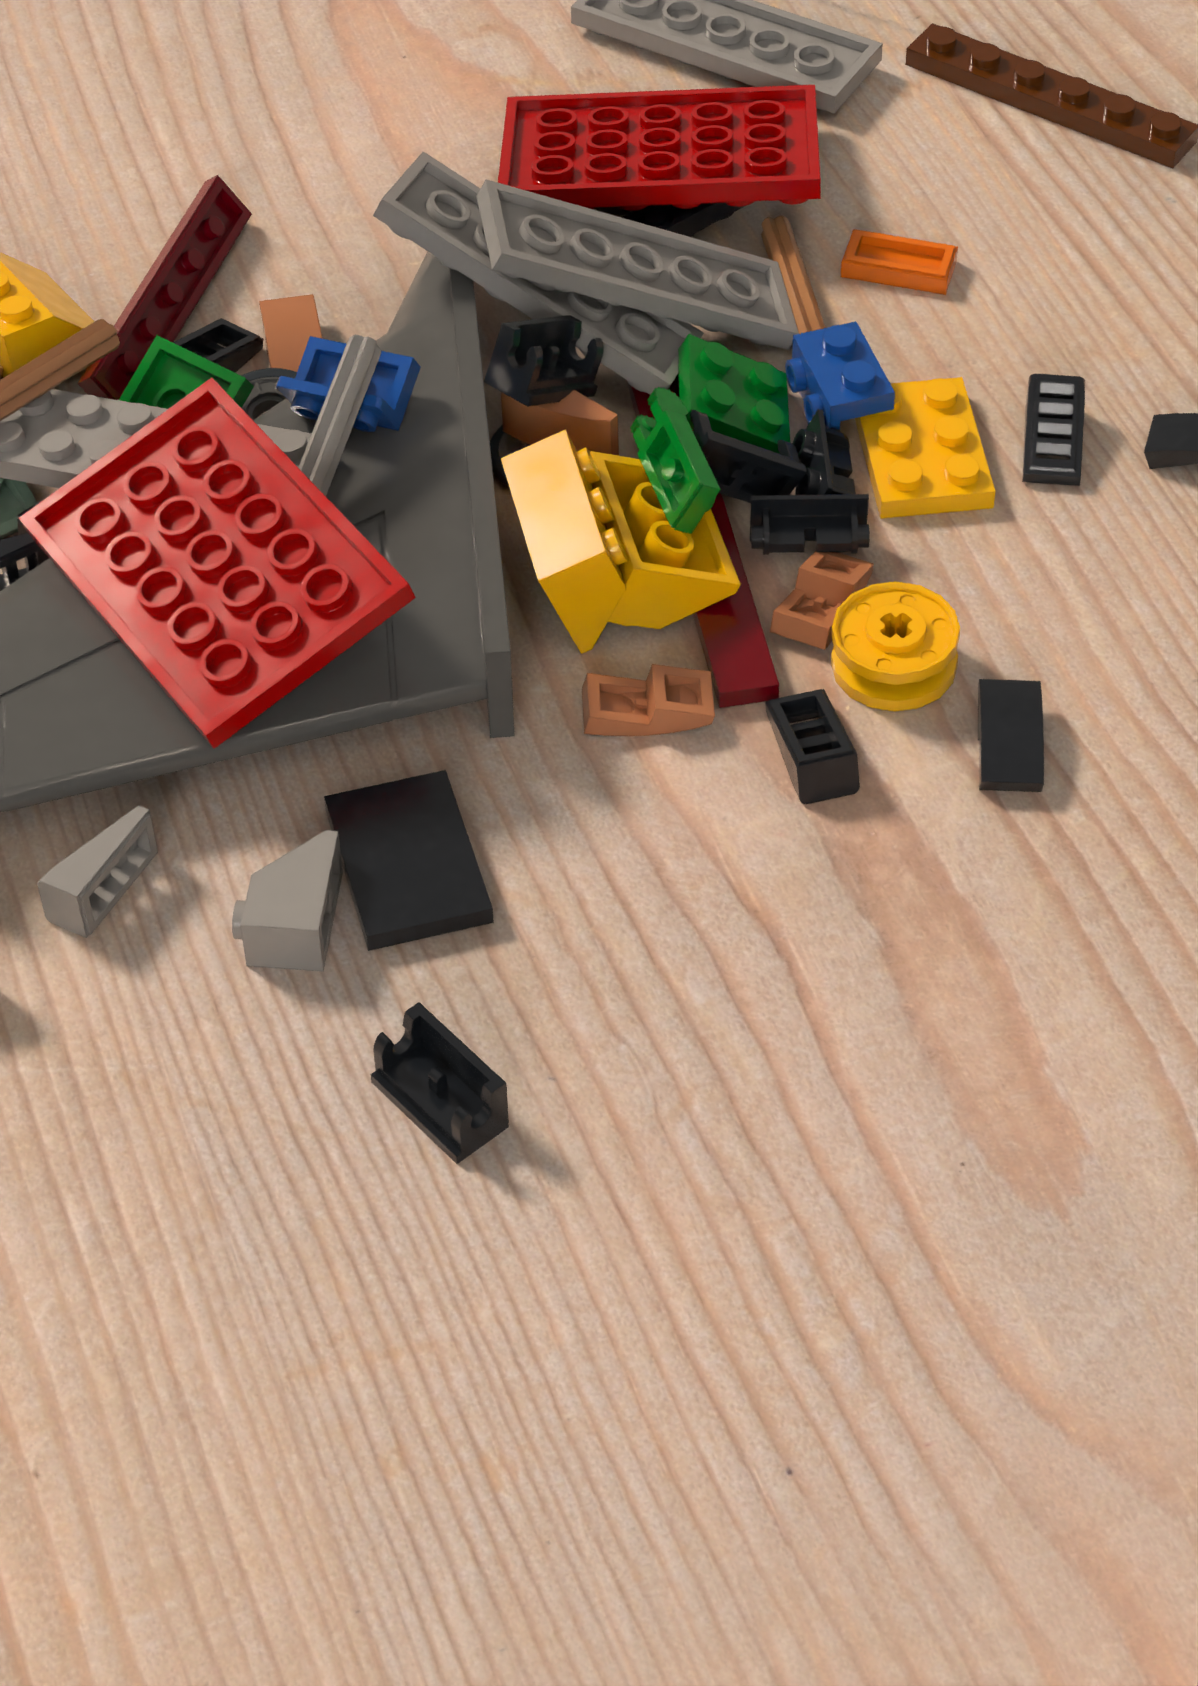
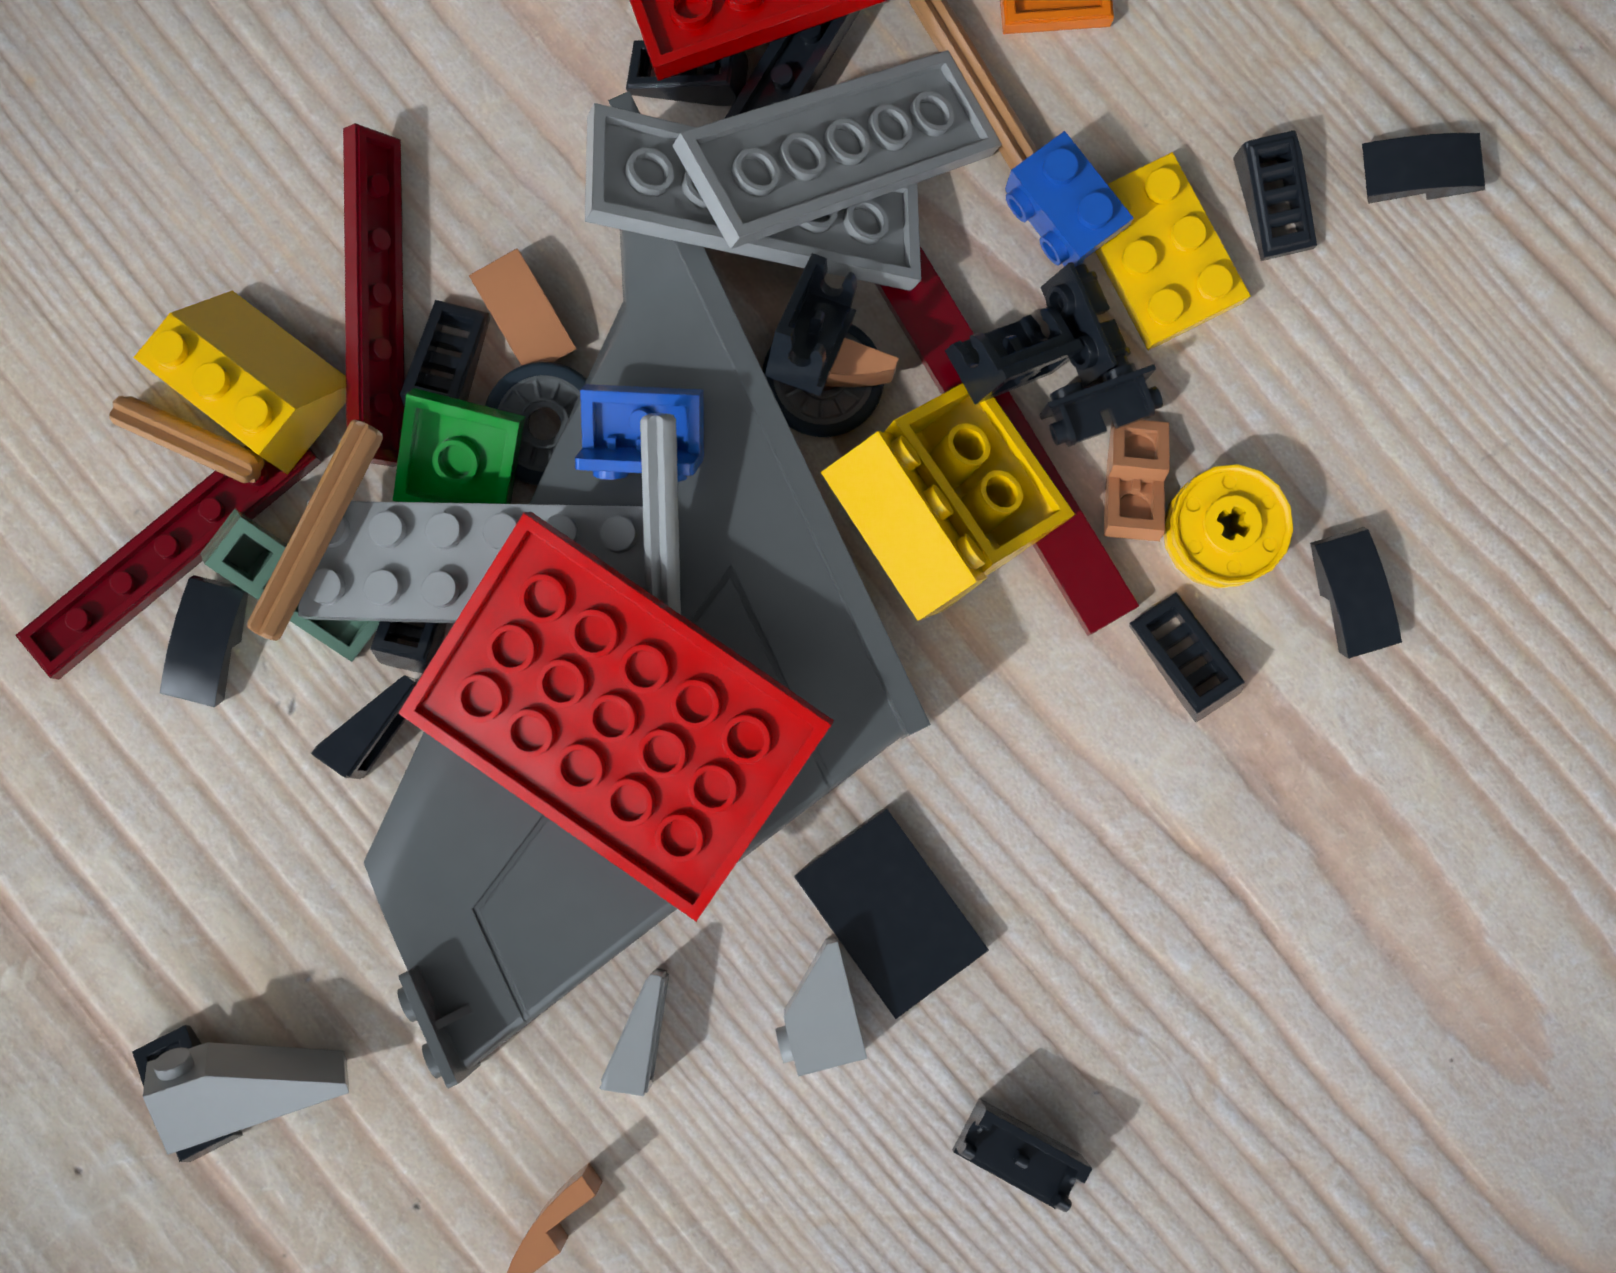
camera: 25 degrees left, 35 degrees up
(662, 704) = (1028, 660): nougat slope -> none
(674, 461) = (974, 401): green hinge -> none
(735, 392) = (976, 262): green plate -> none

